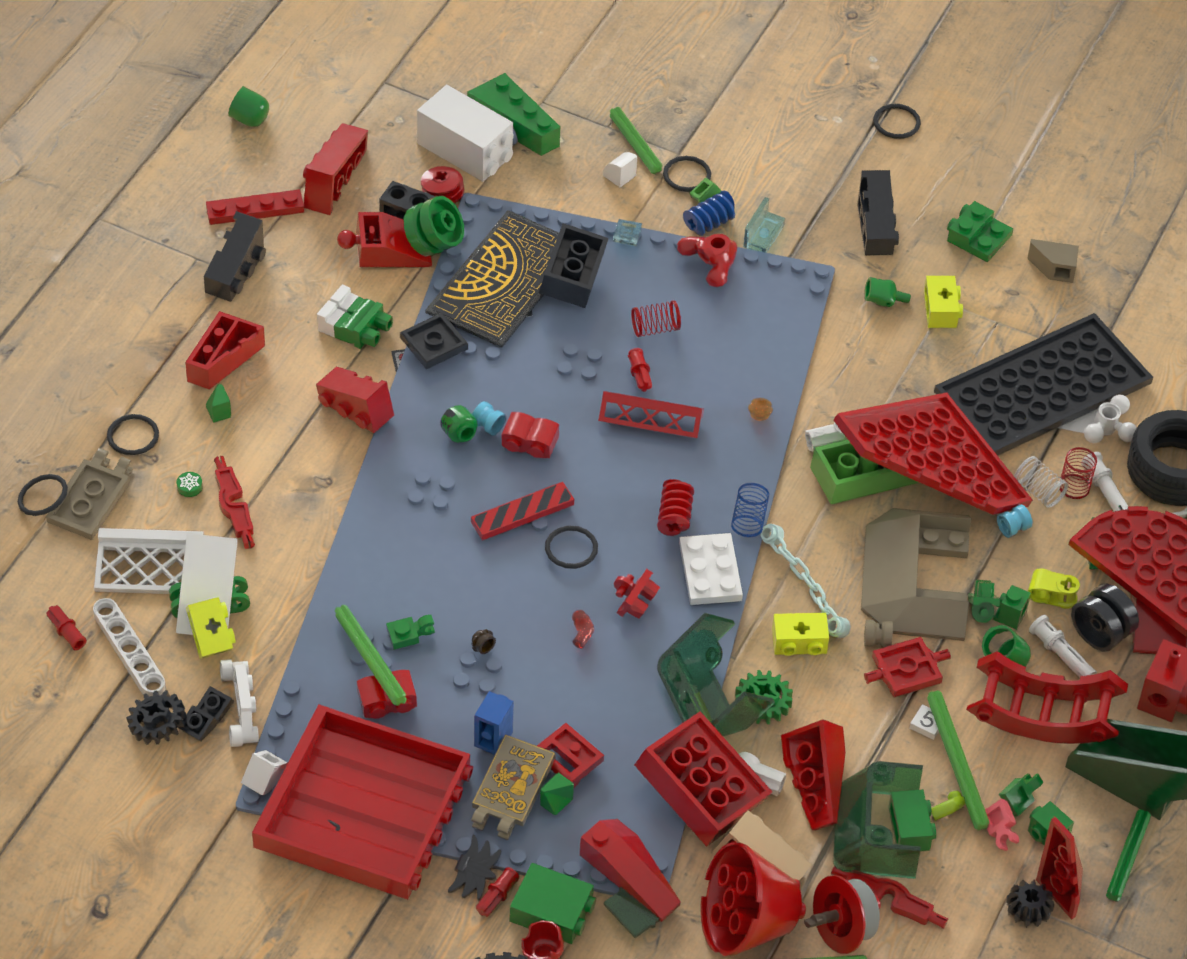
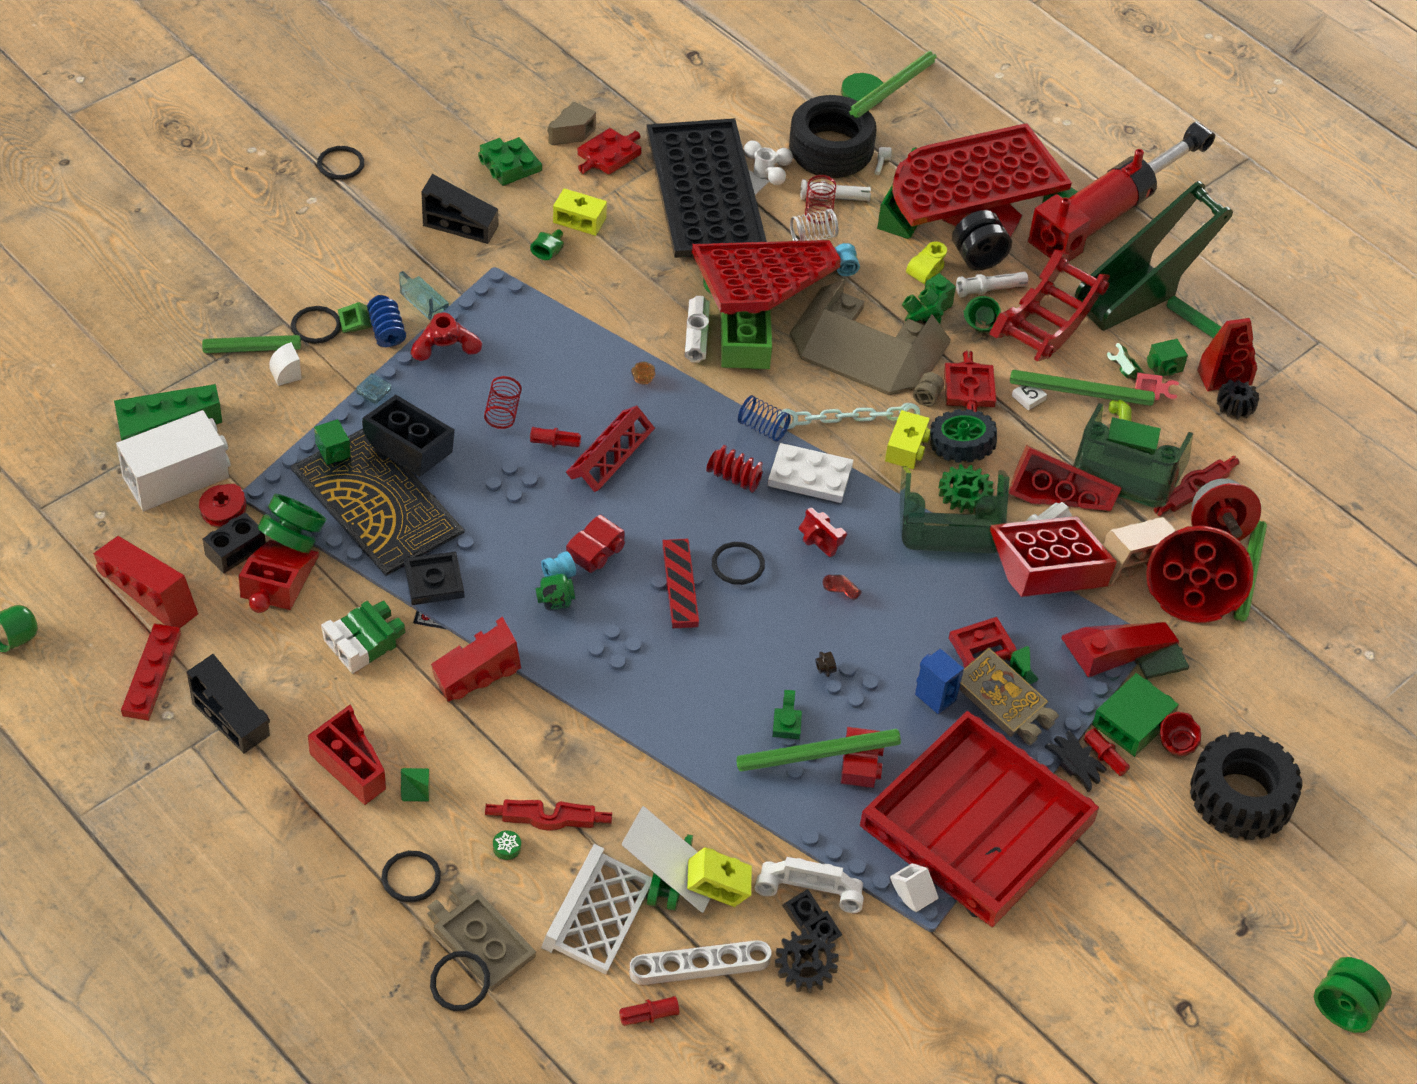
camera: 70 degrees left, 0 degrees up
(541, 222) = (332, 441): none -> green brick
(826, 682) = (963, 435): none -> black wheel
(1043, 299) = (609, 151): none -> red plate

